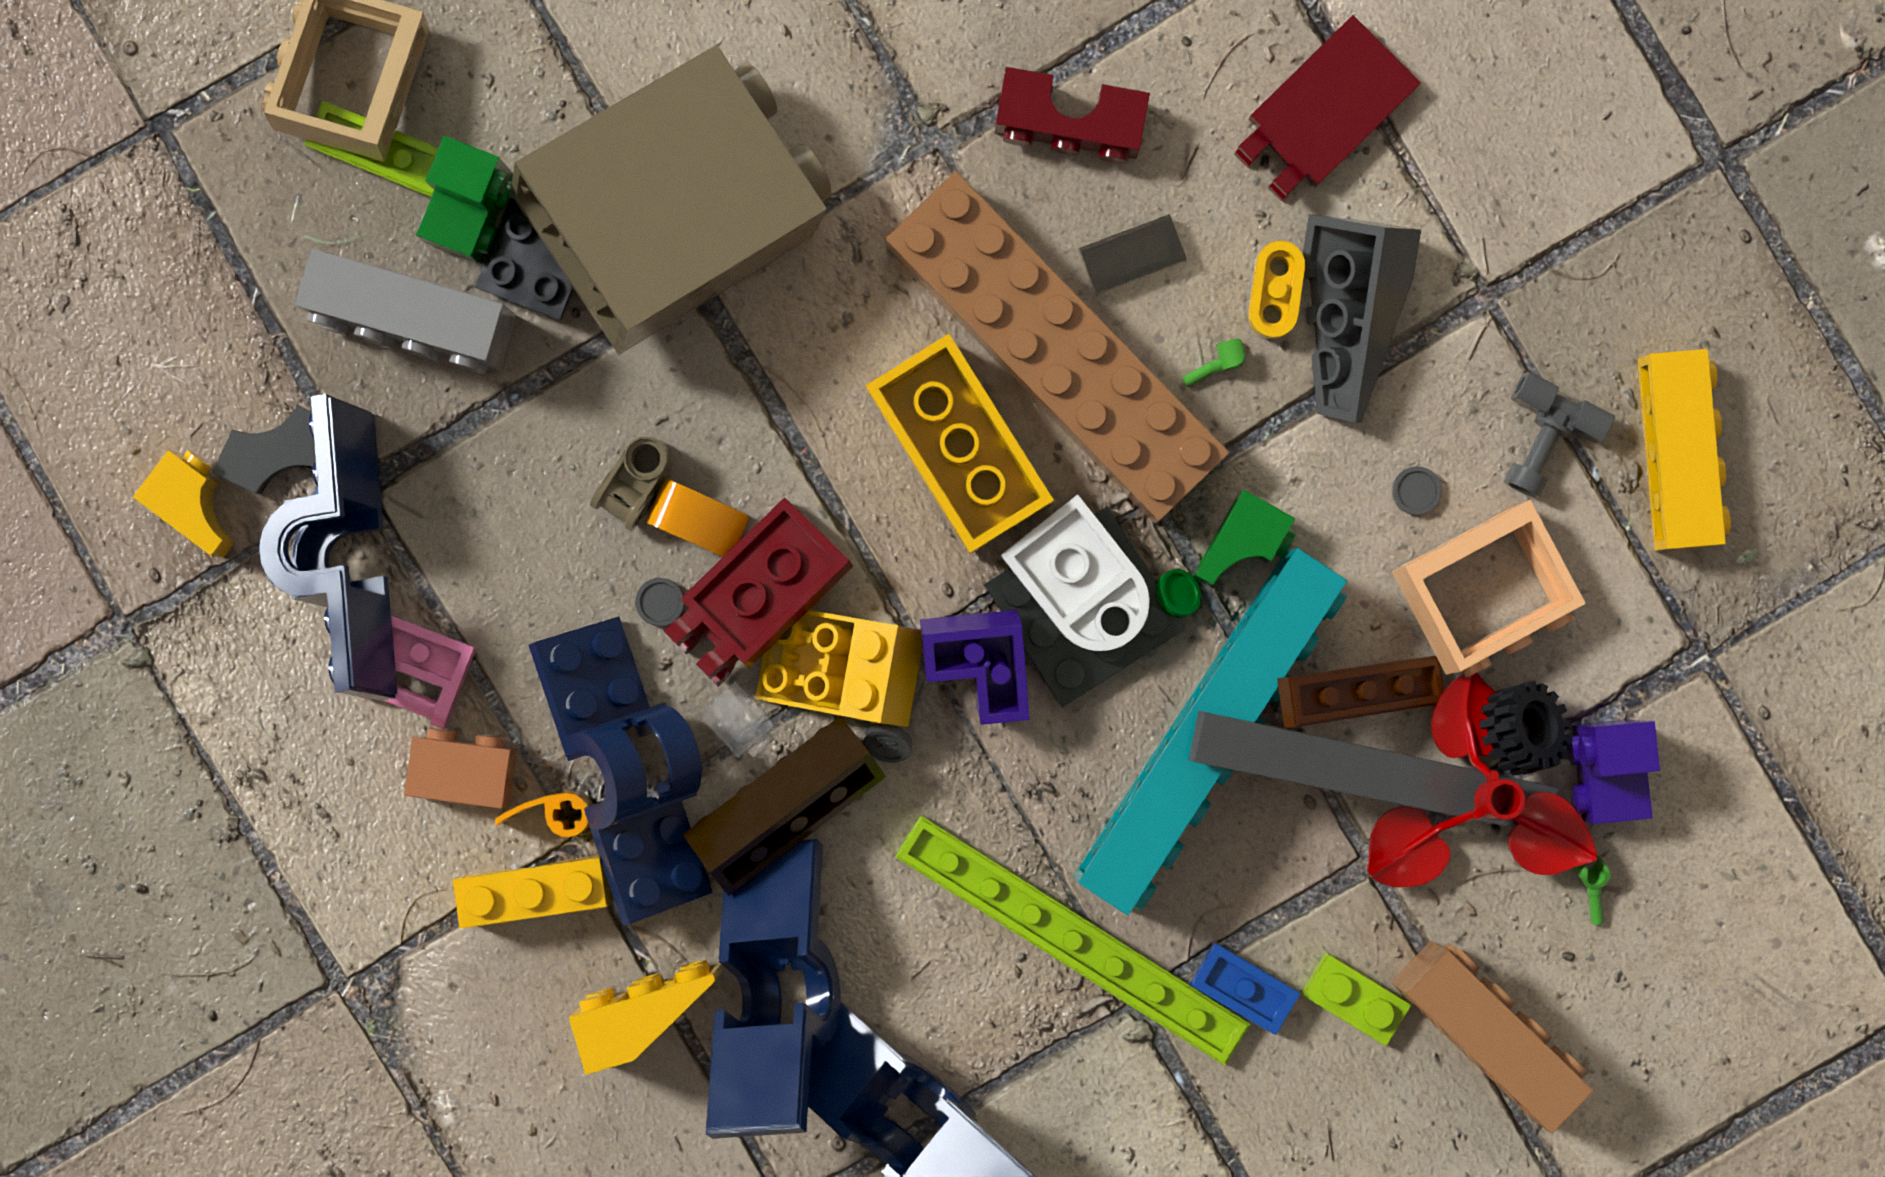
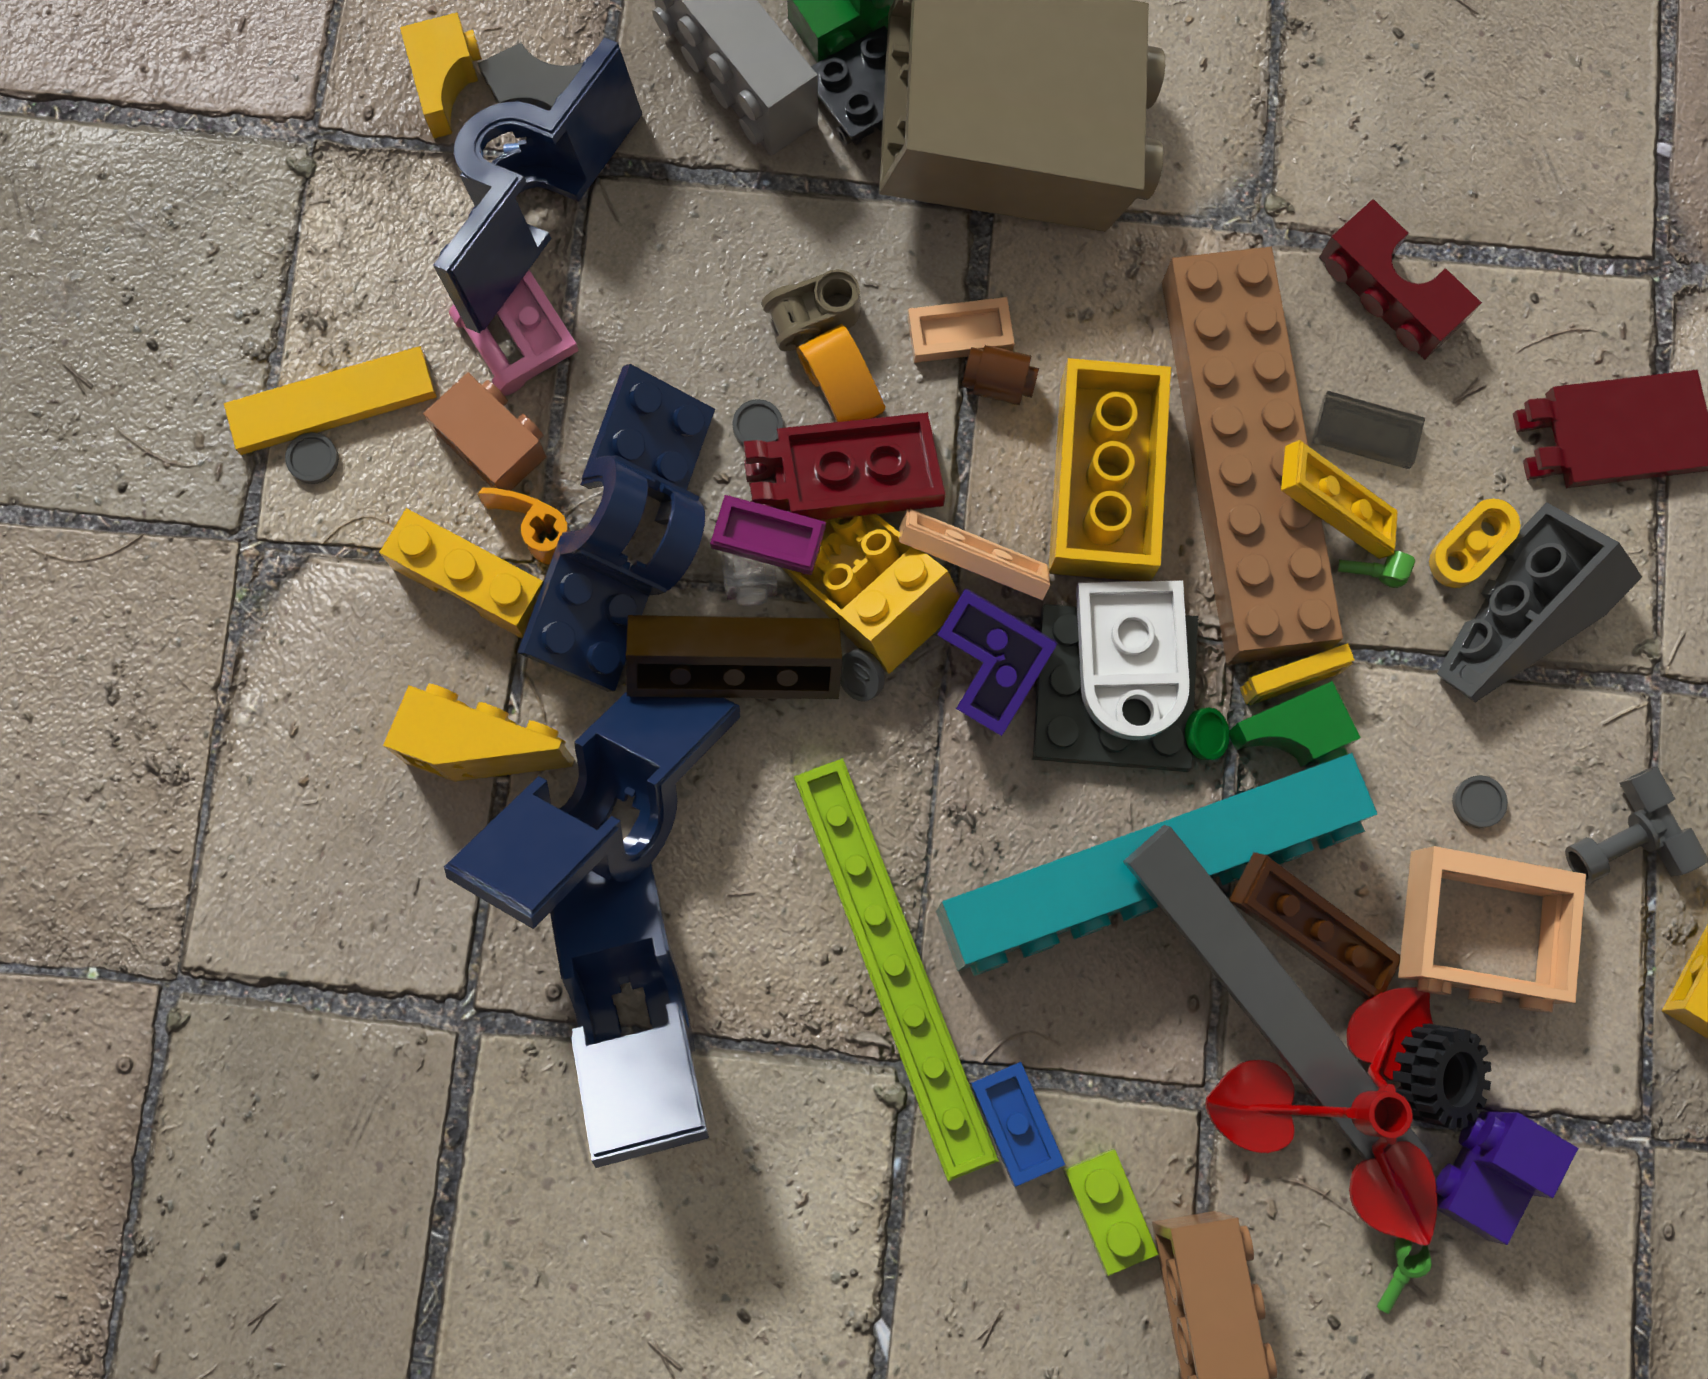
camera: 35 degrees right, 10 degrees down
(317, 830) = (330, 400): none -> yellow tile
(339, 885) = (311, 458): none -> dark grey piece
(741, 695) = (768, 535): none -> magenta tile
(759, 407) = (954, 328): none -> light nougat tile
(818, 425) = (1000, 374): none -> reddish brown brick
(905, 588) = (974, 553): none -> light nougat tile
(1151, 342) = (1339, 499): none -> yellow tile
(1214, 498) = (1297, 674): none -> yellow tile

